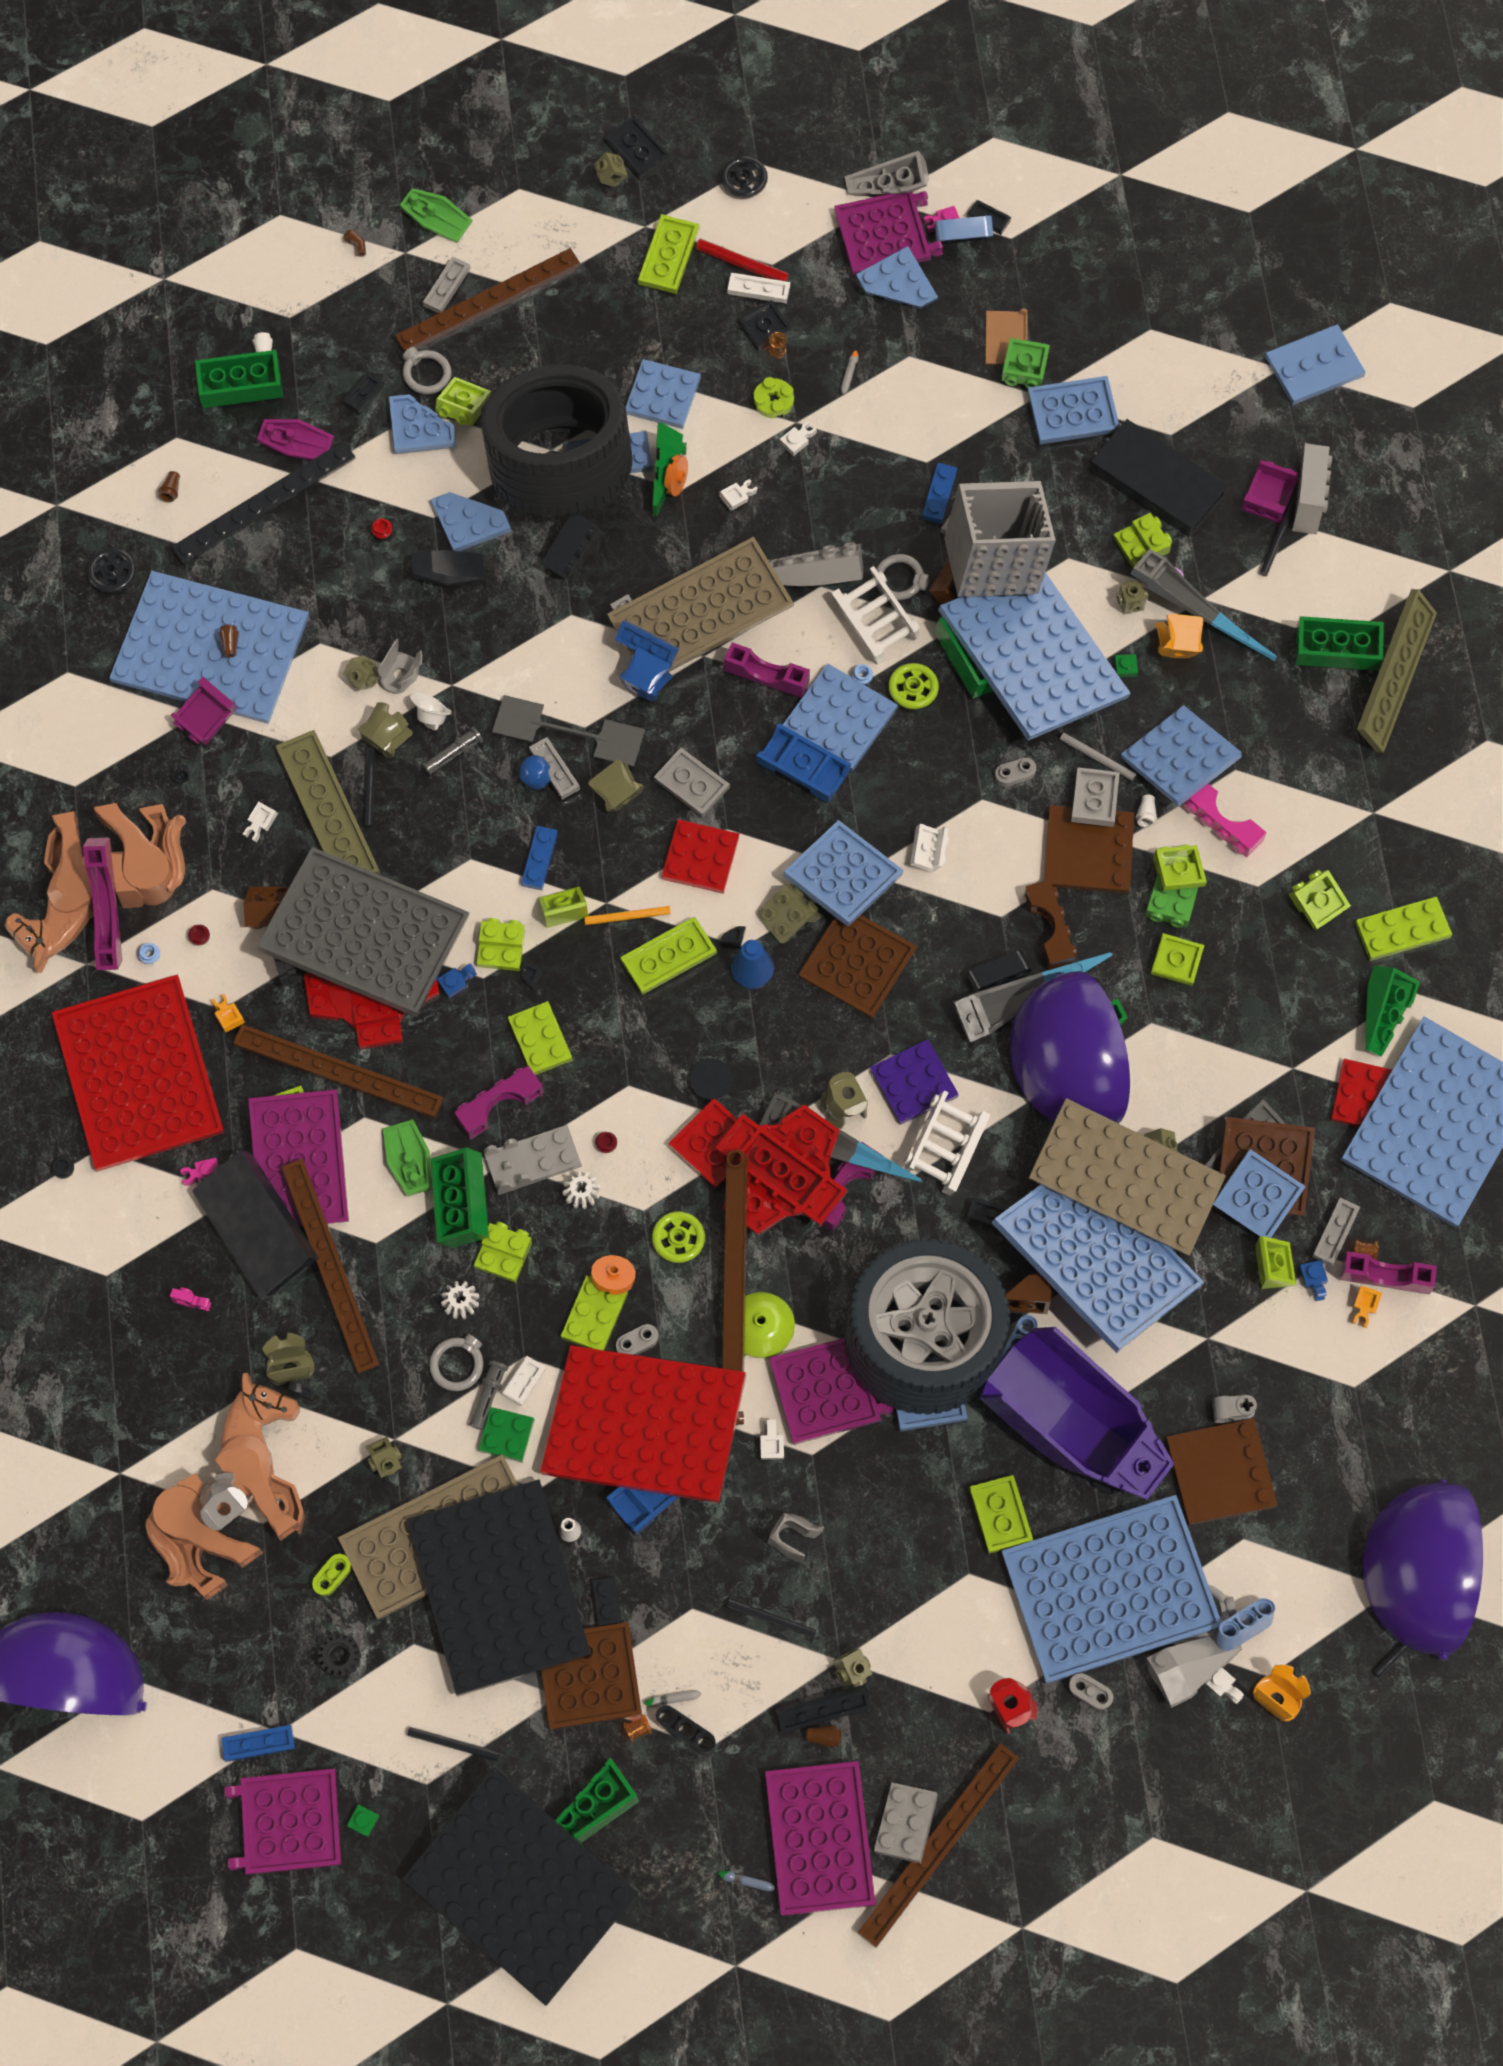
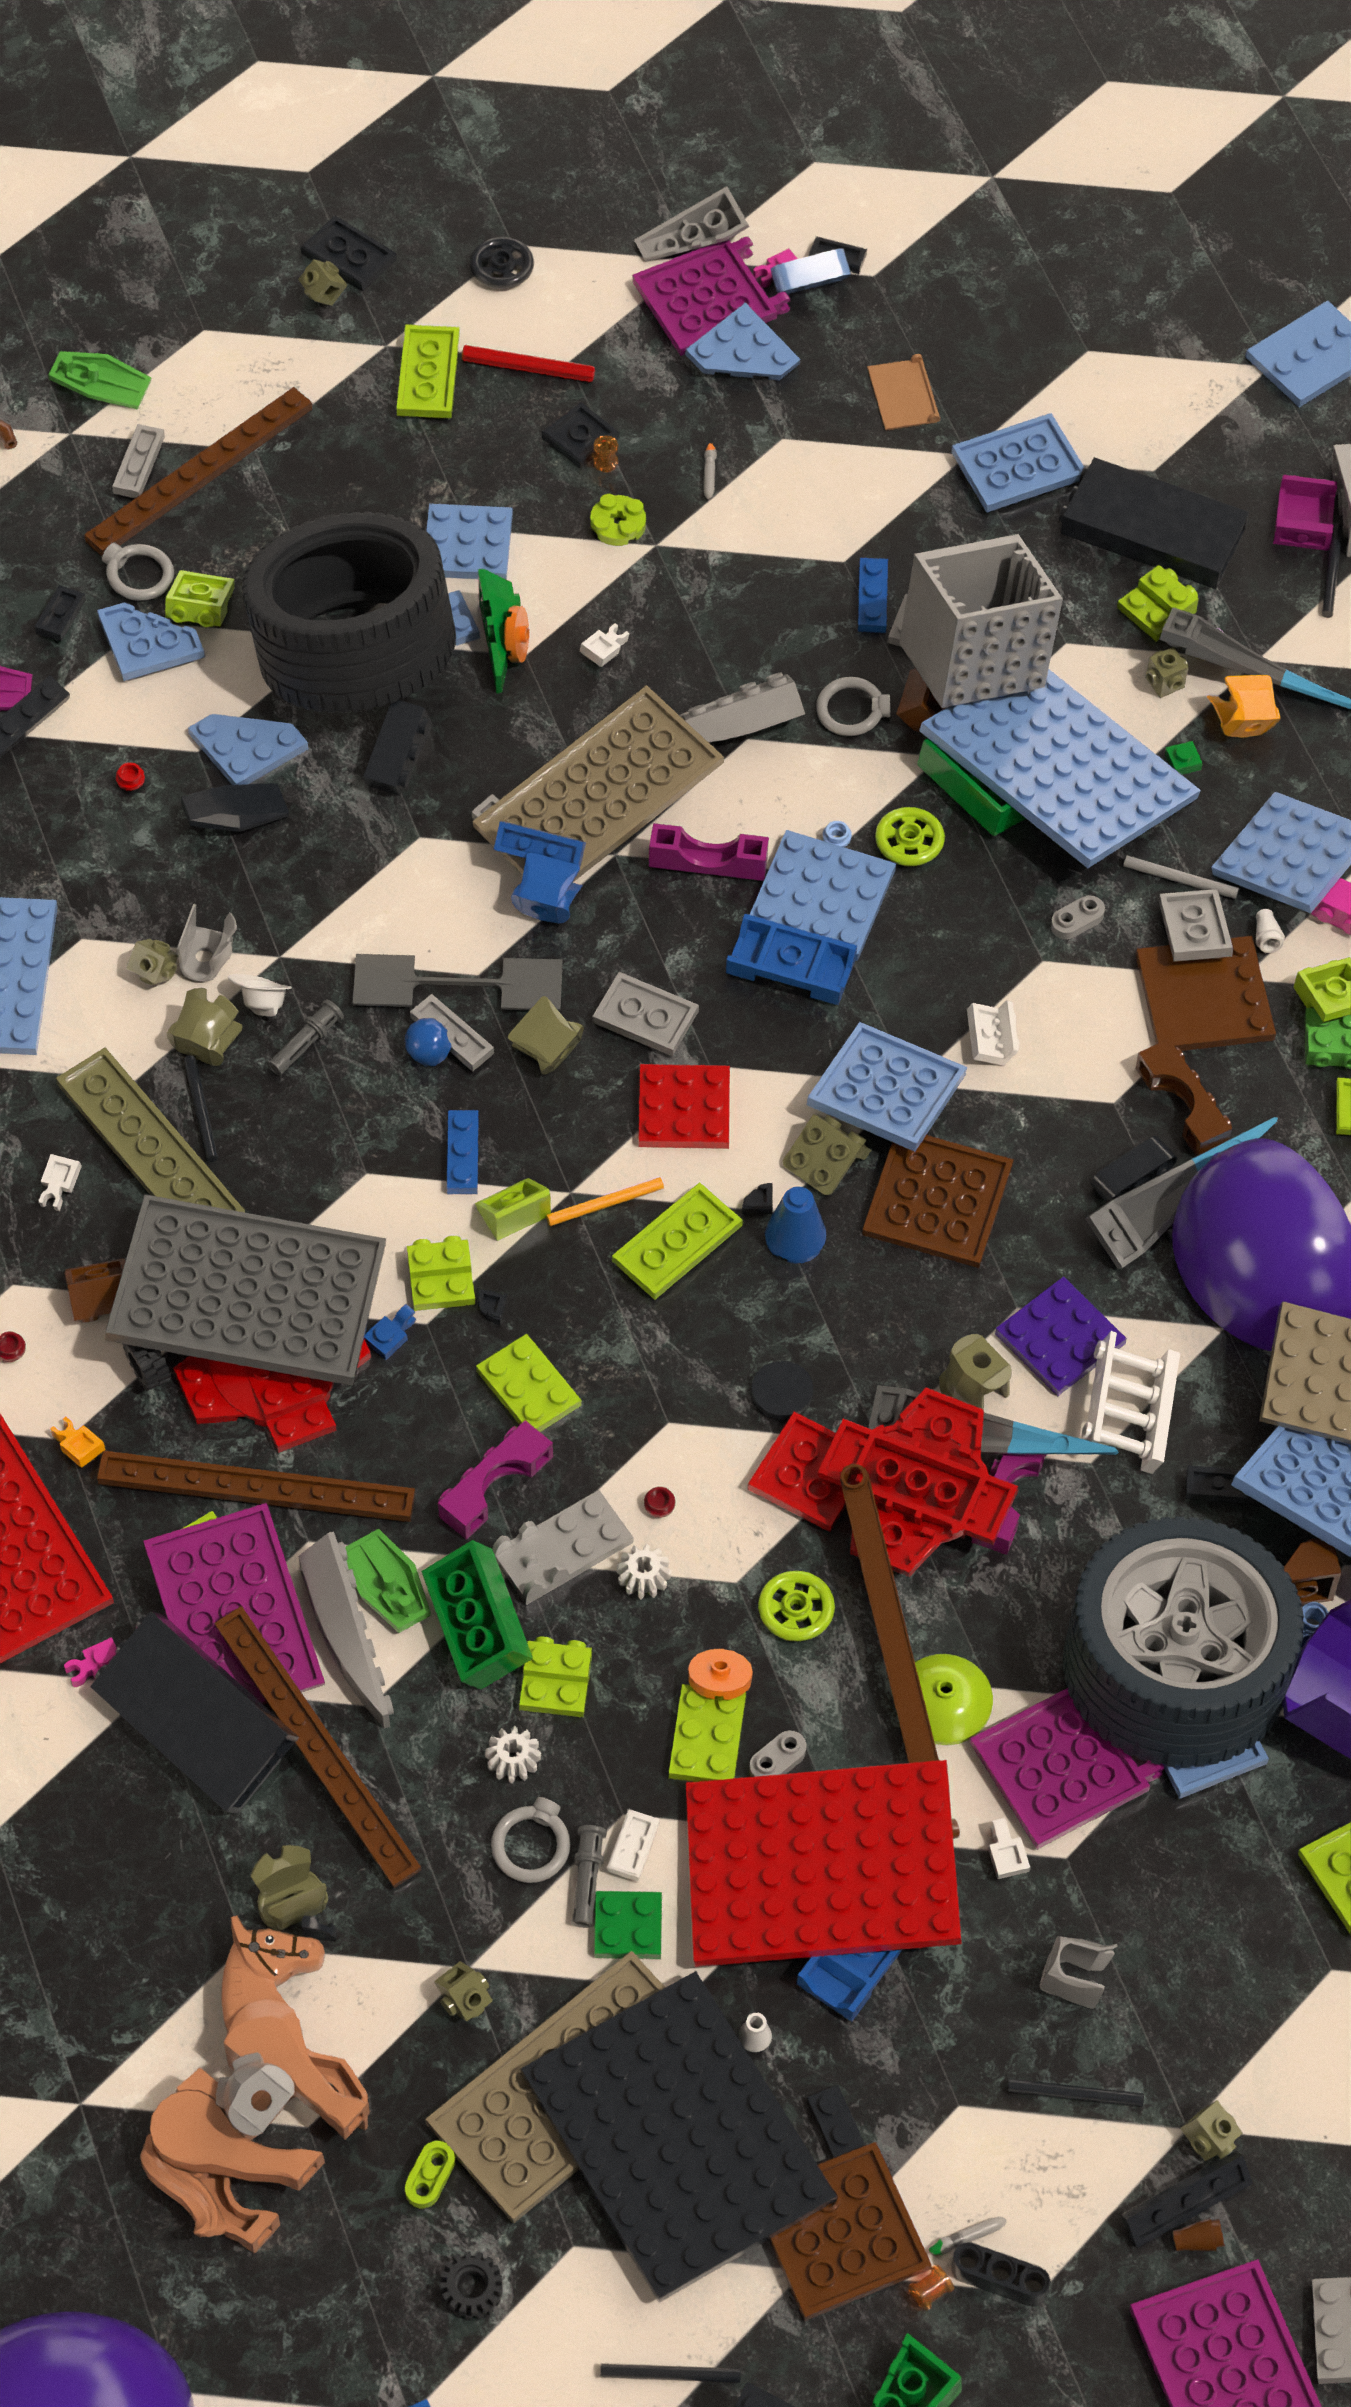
camera: 15 degrees left, 10 degrees down
(186, 1298) = (119, 1837): dark pink plate -> none
(369, 1183) = (342, 1625): none -> light grey wedge
(758, 288) = (560, 390): white plate -> none
(796, 440) = (663, 566): white plate -> none
(866, 632) = (827, 782): white fence -> none
(1025, 363) = (939, 416): bright green plate -> none

